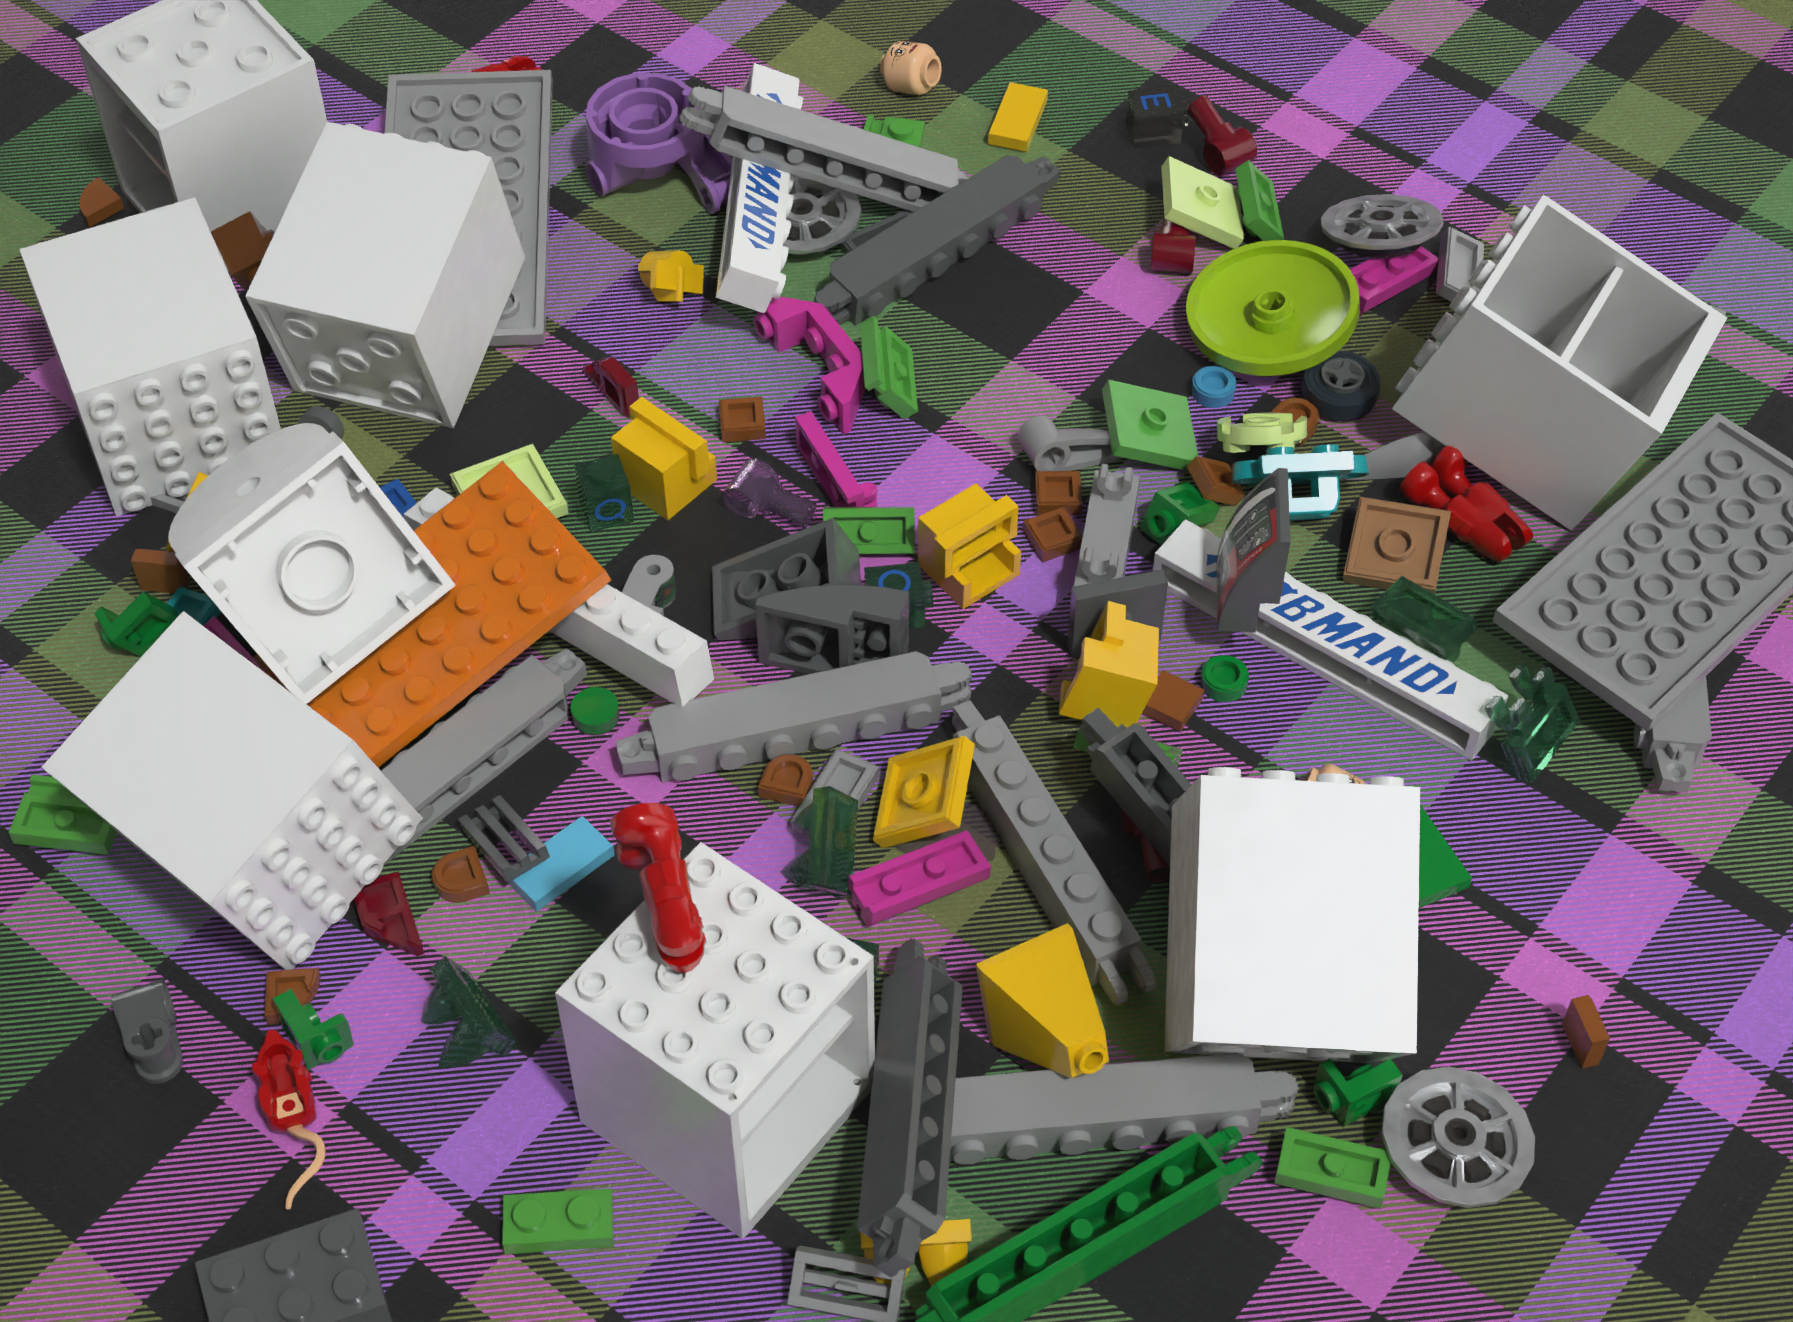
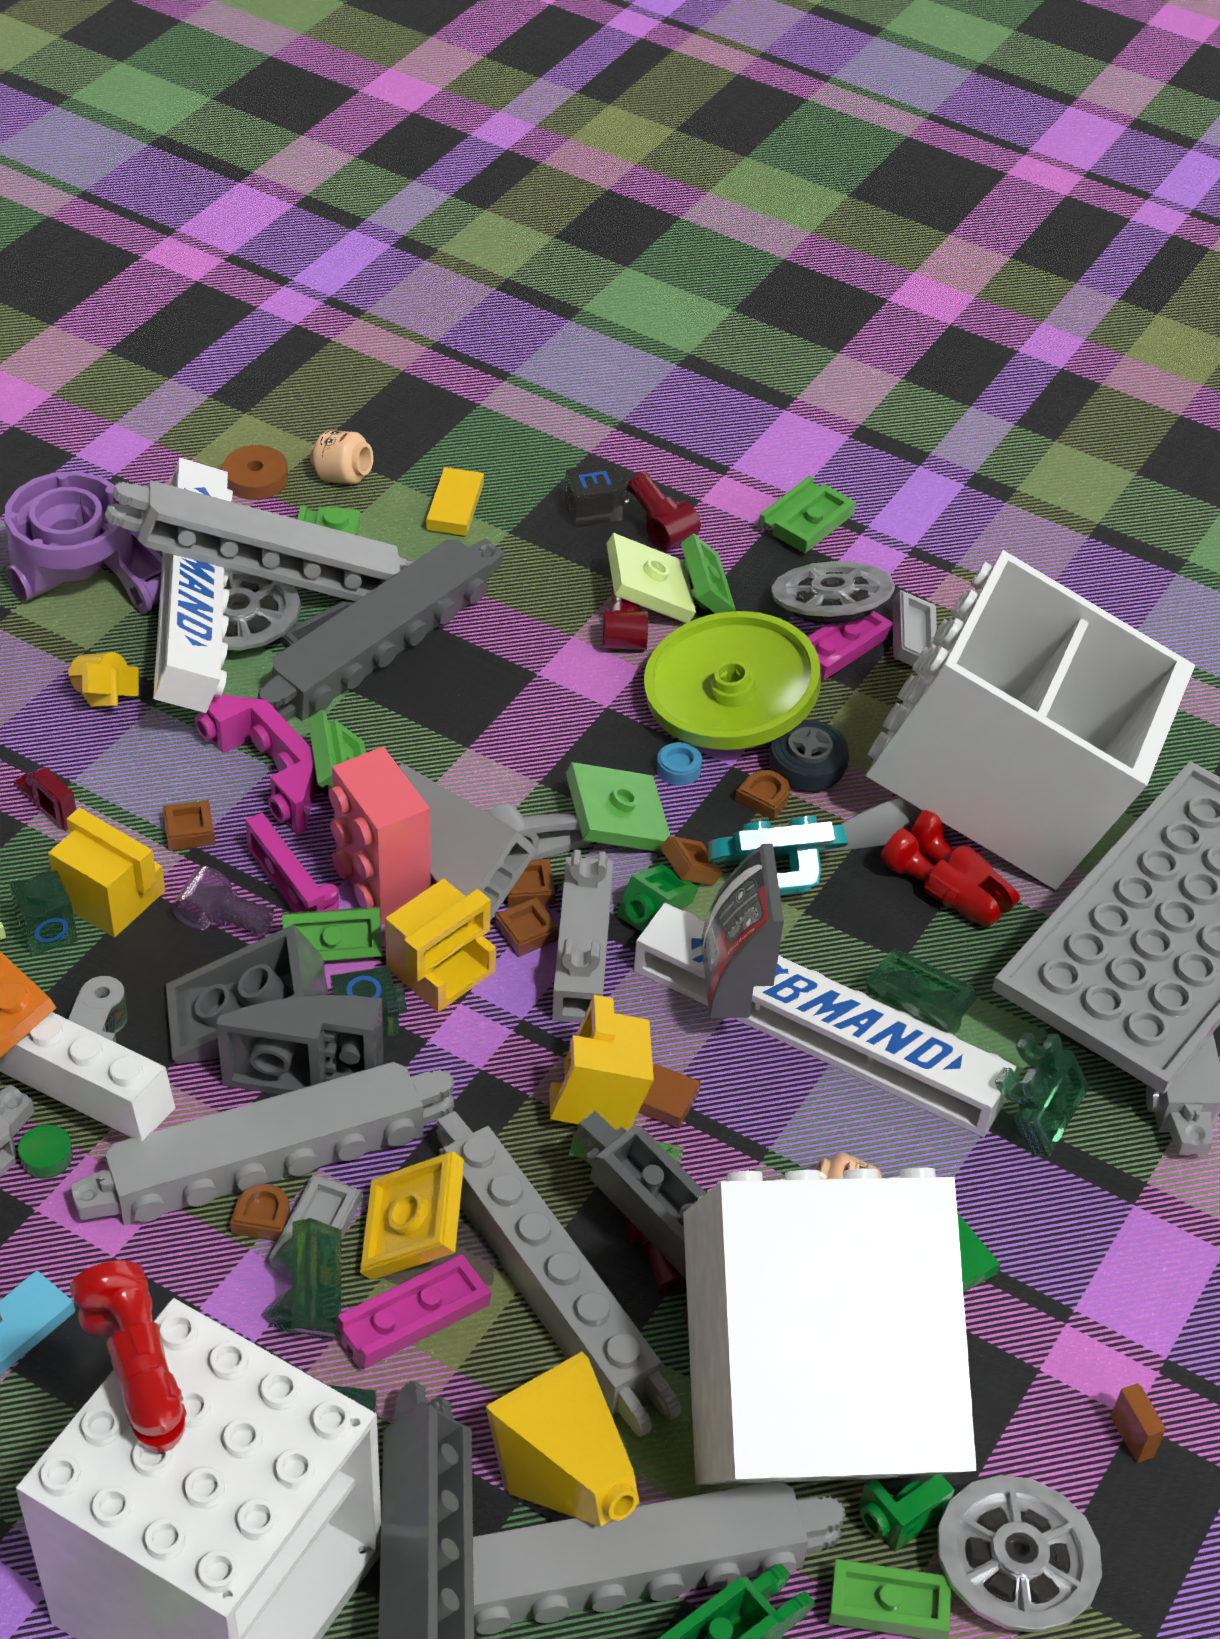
camera: 10 degrees left, 5 degrees down
(827, 79) = (256, 472): none -> dark orange piece
(919, 435) = (380, 832): none -> coral brick
(991, 445) = (471, 845): none -> light grey slope
(1141, 593) = (628, 984): dark grey plate -> none
(1224, 678) = (720, 1068): green tile -> none
(1261, 429) = (733, 805): yellowish green plate -> none
(1365, 145) = (807, 514): none -> bright green plate
(1396, 542) = (882, 914): medium nougat plate -> none

